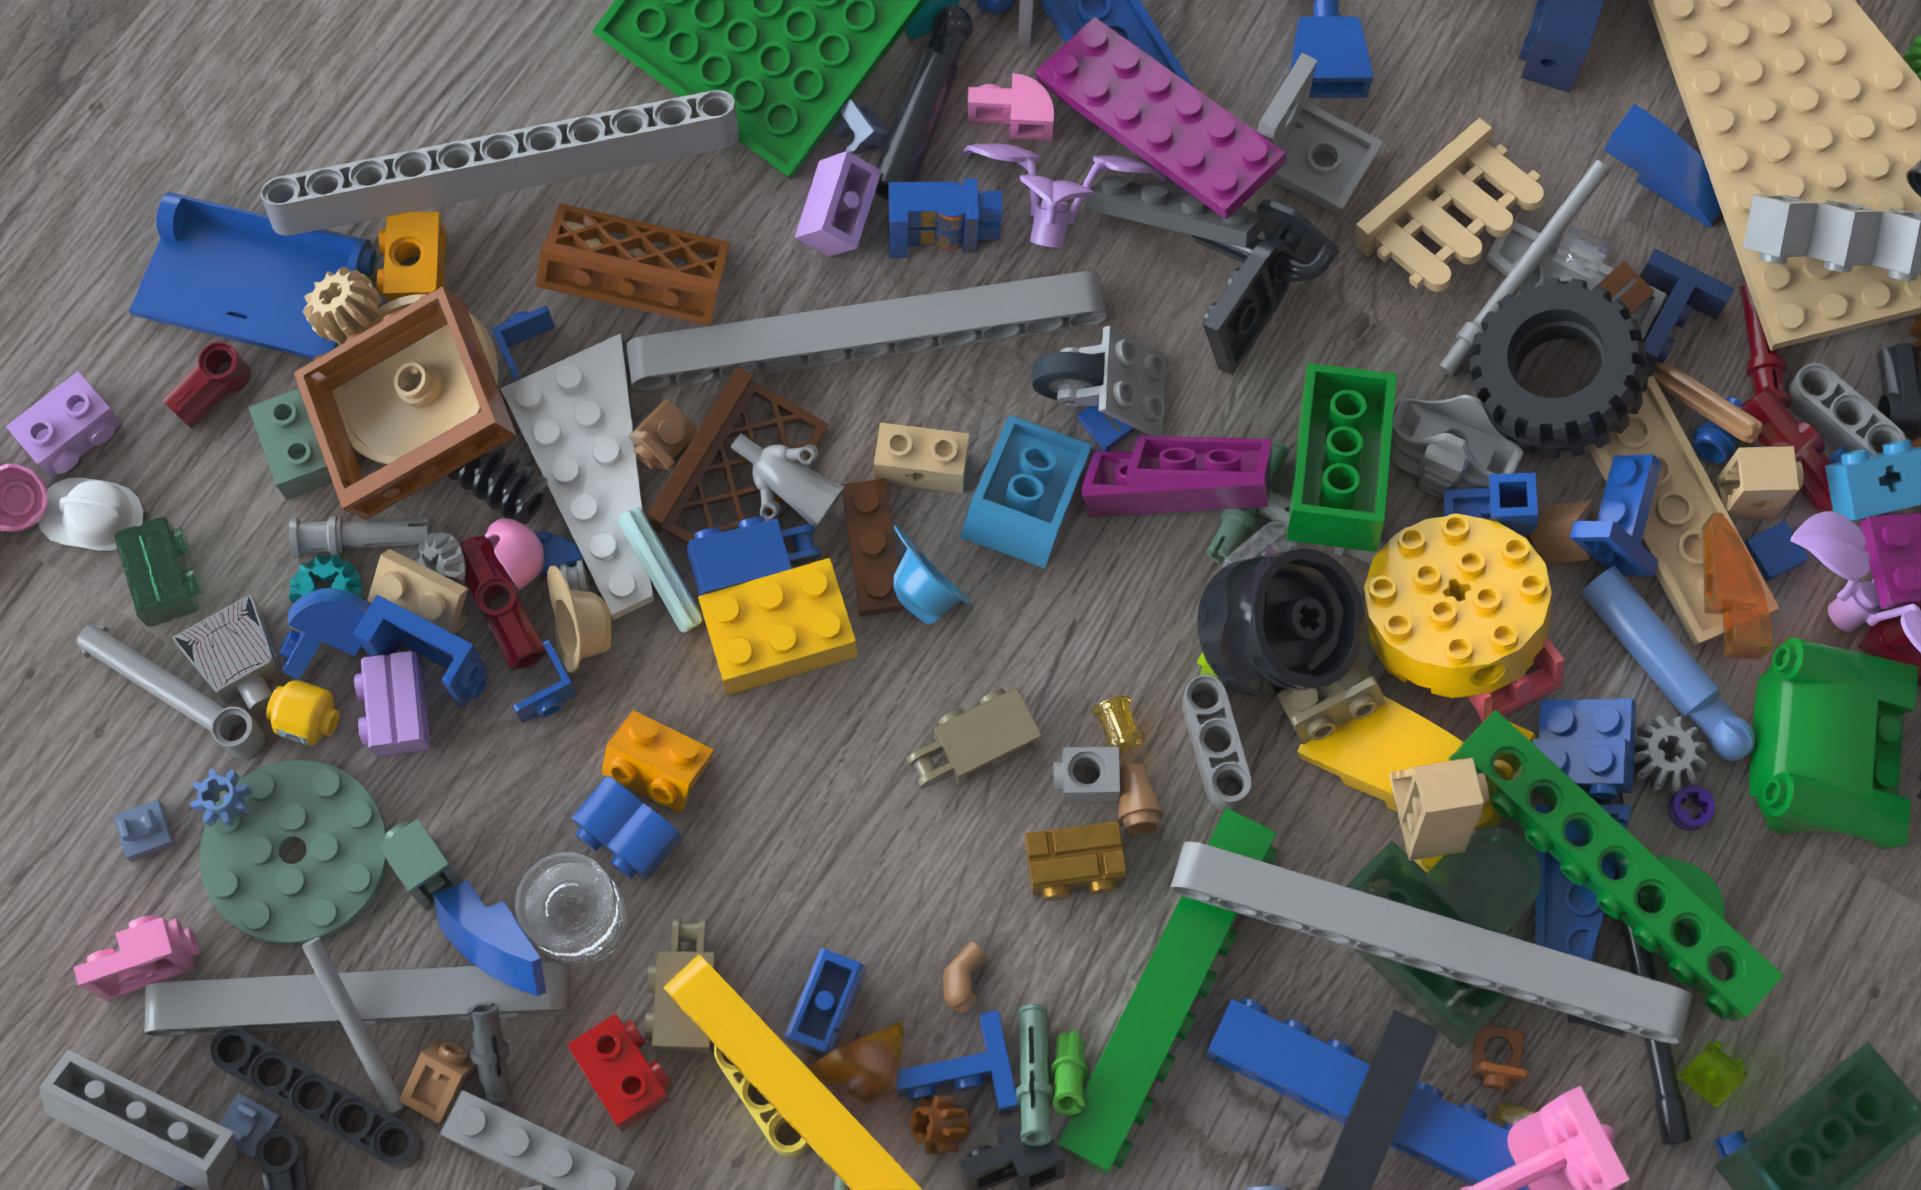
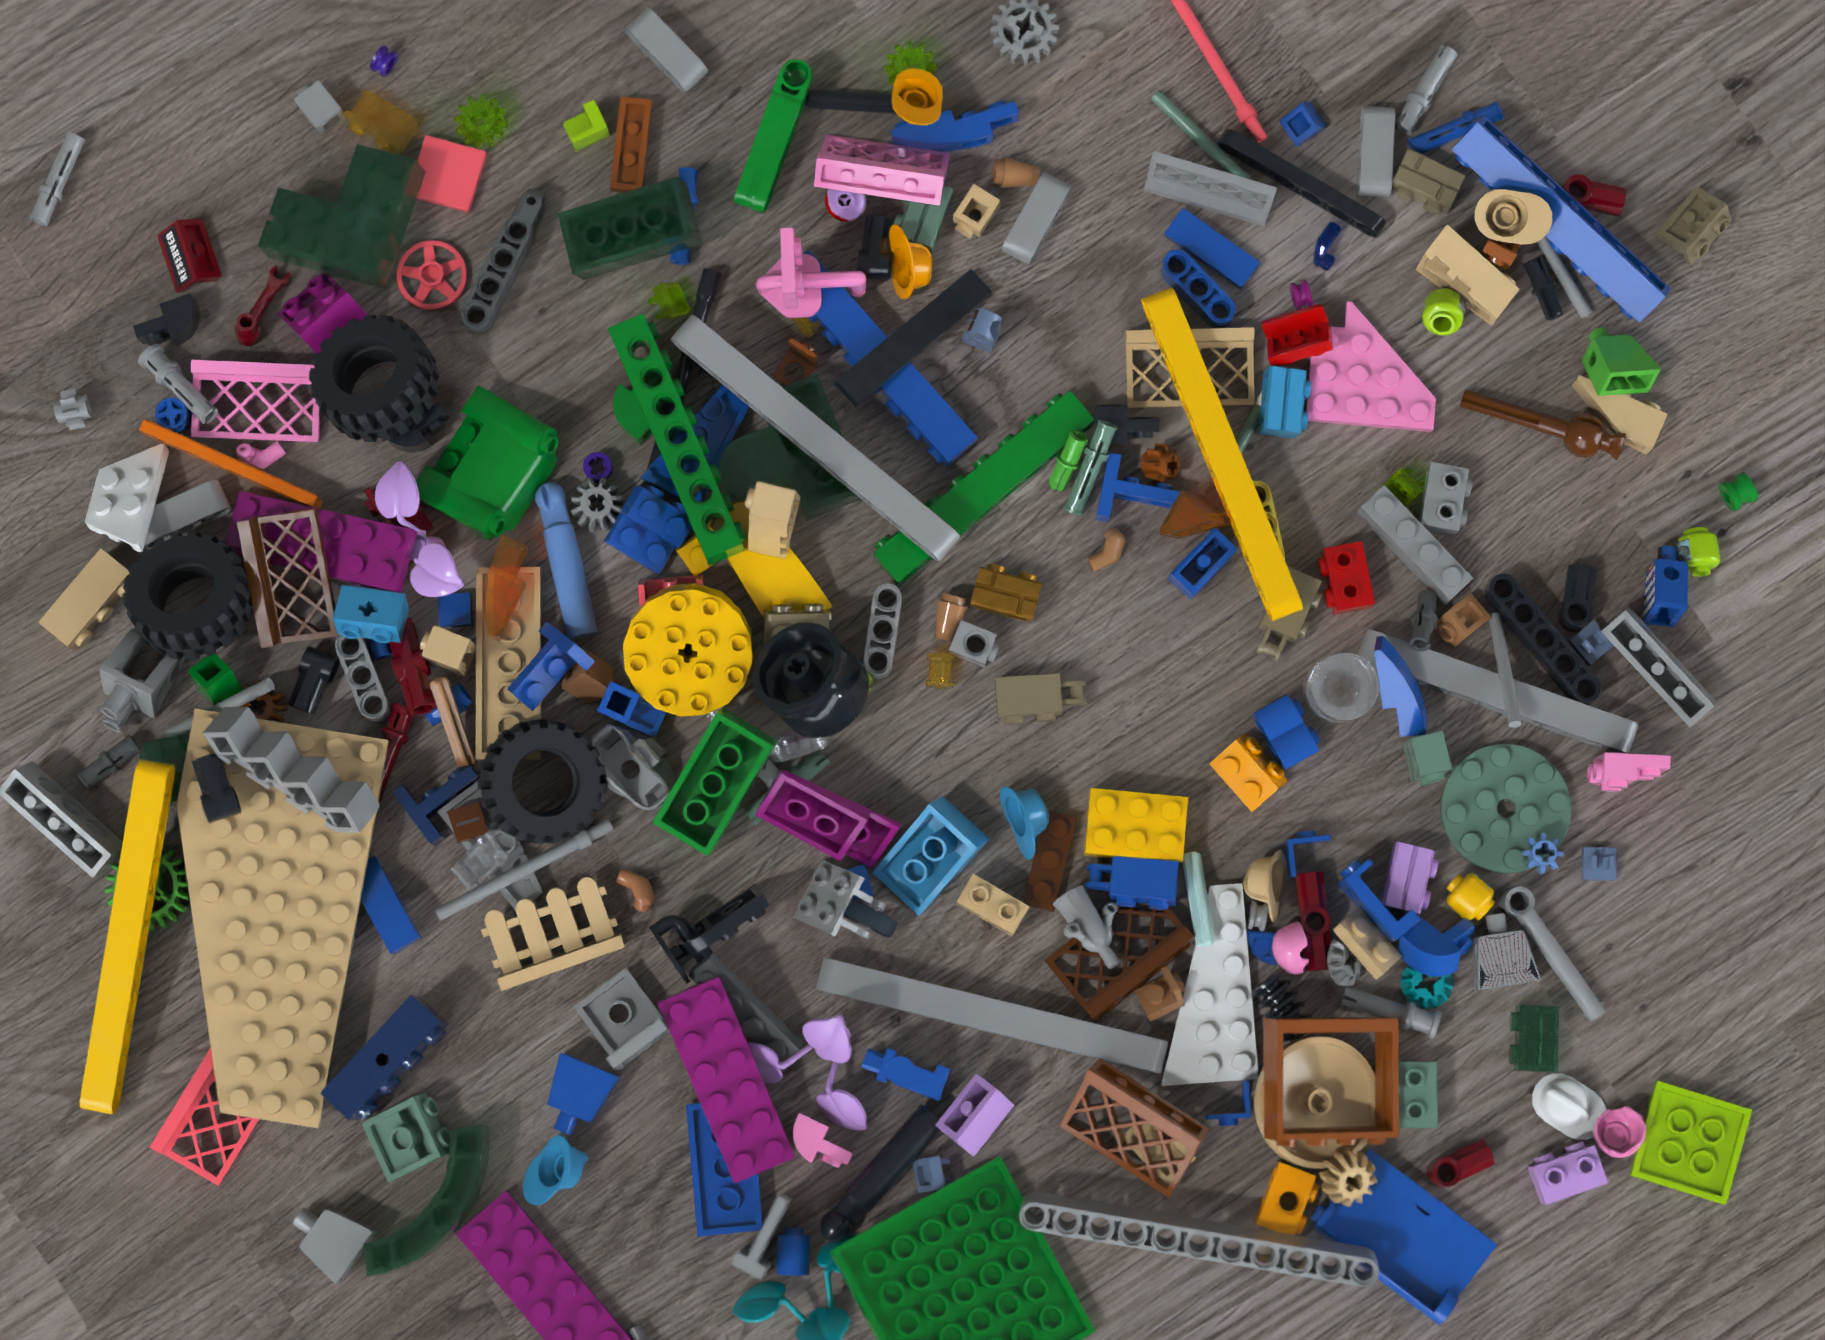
camera: 155 degrees left, 10 degrees up
(1369, 310) = (641, 889): none -> nougat arm

